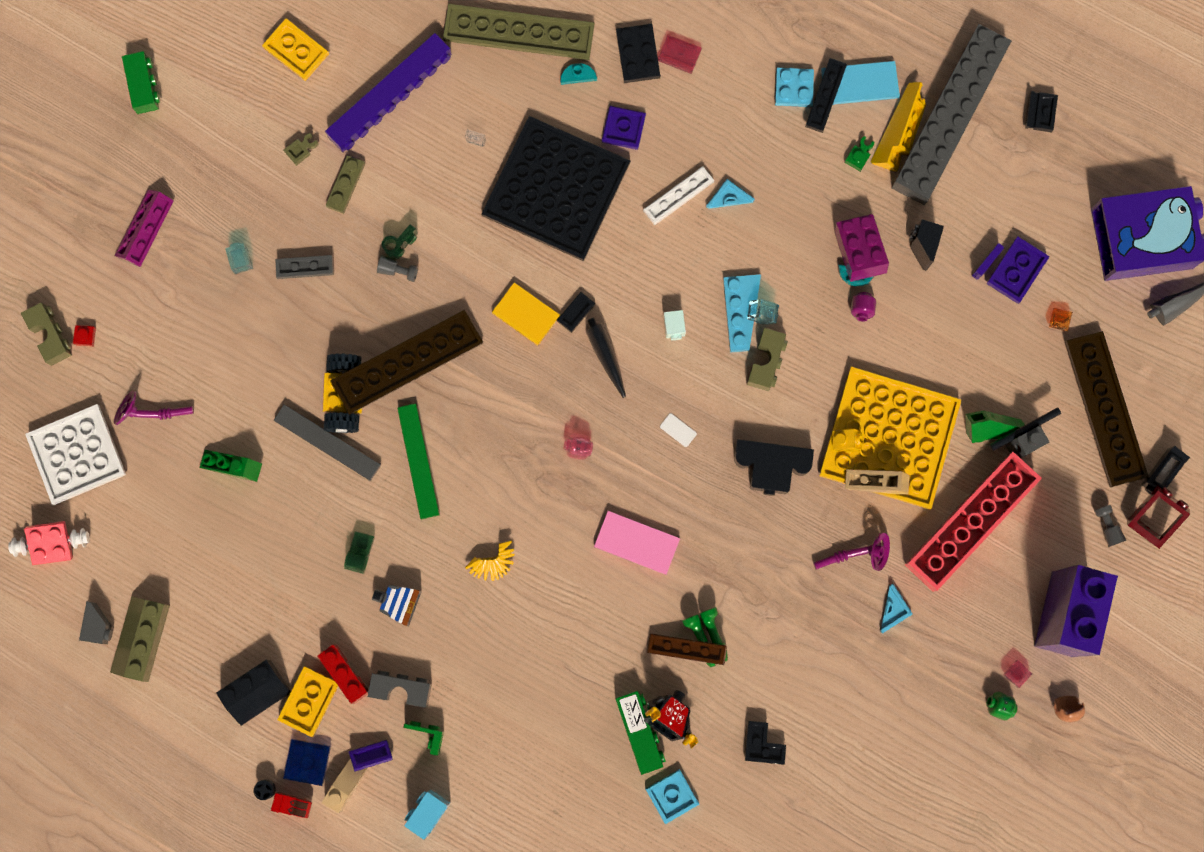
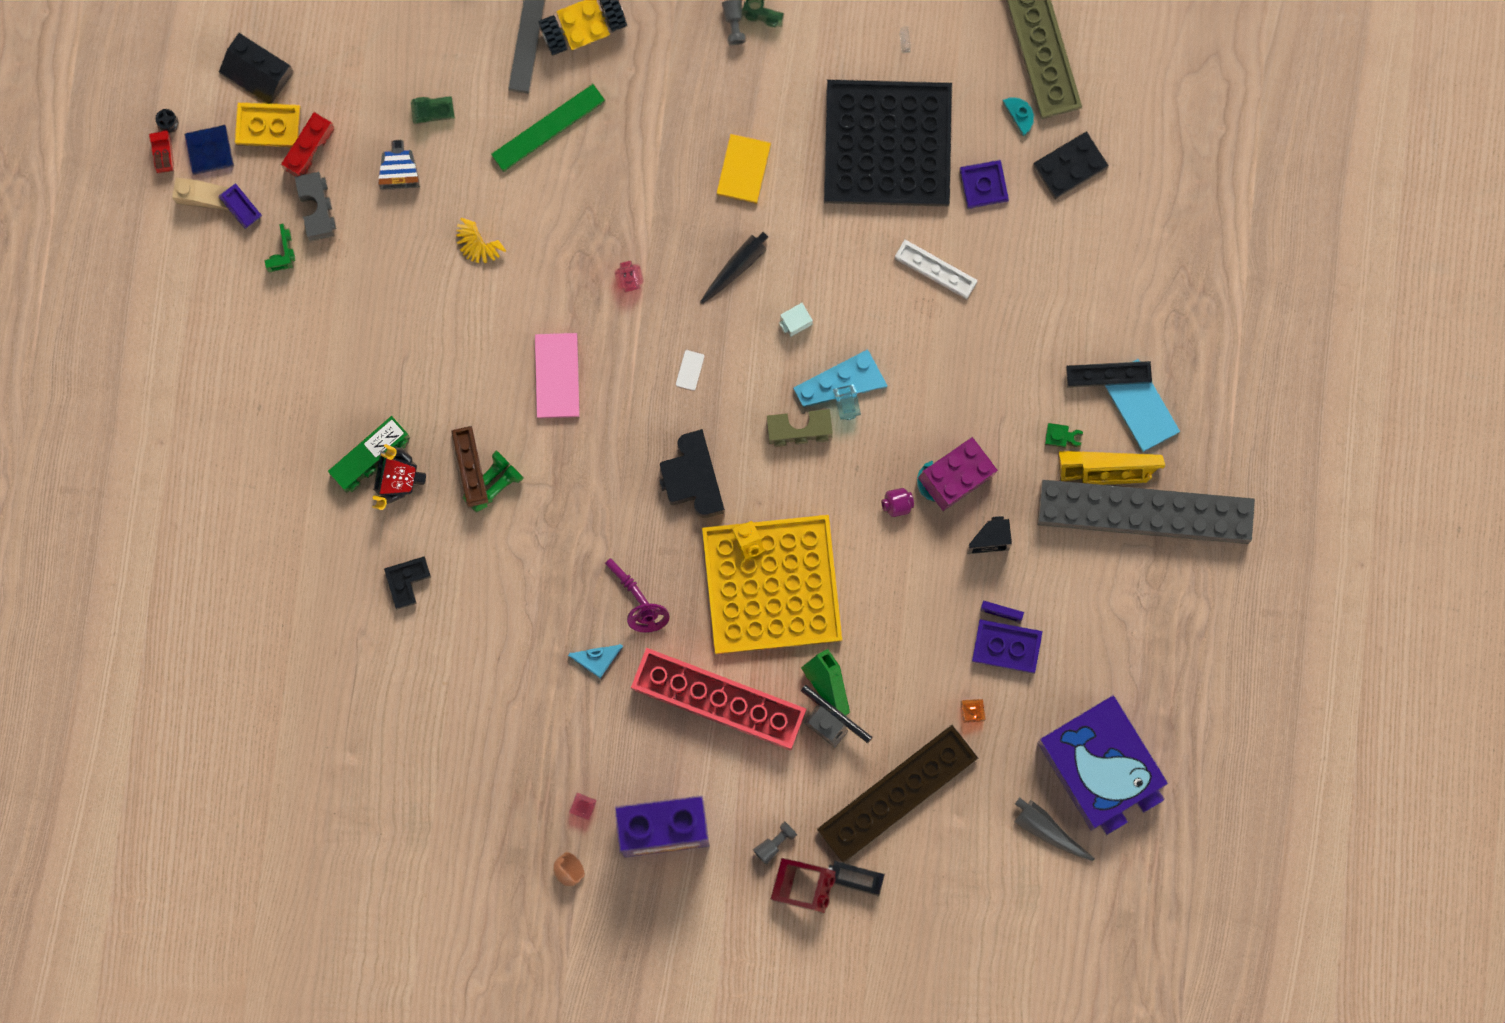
camera: 70 degrees right, 0 degrees up
(406, 362) = (640, 71): dark brown plate -> none
(427, 814) = (206, 281): medium azure brick -> none
(576, 312) = (767, 217): black tile -> none
(672, 796) = (320, 513): medium azure tile -> none
(679, 54) = (1089, 208): clear pink plate -> none
(729, 195) = (958, 319): medium azure tile -> none
(794, 87) = (1105, 339): medium azure plate -> none
(877, 481) = (718, 586): tan slope -> none
(1001, 706) = (543, 801): green head -> none
(1041, 111) = (1192, 605): black plate -> none

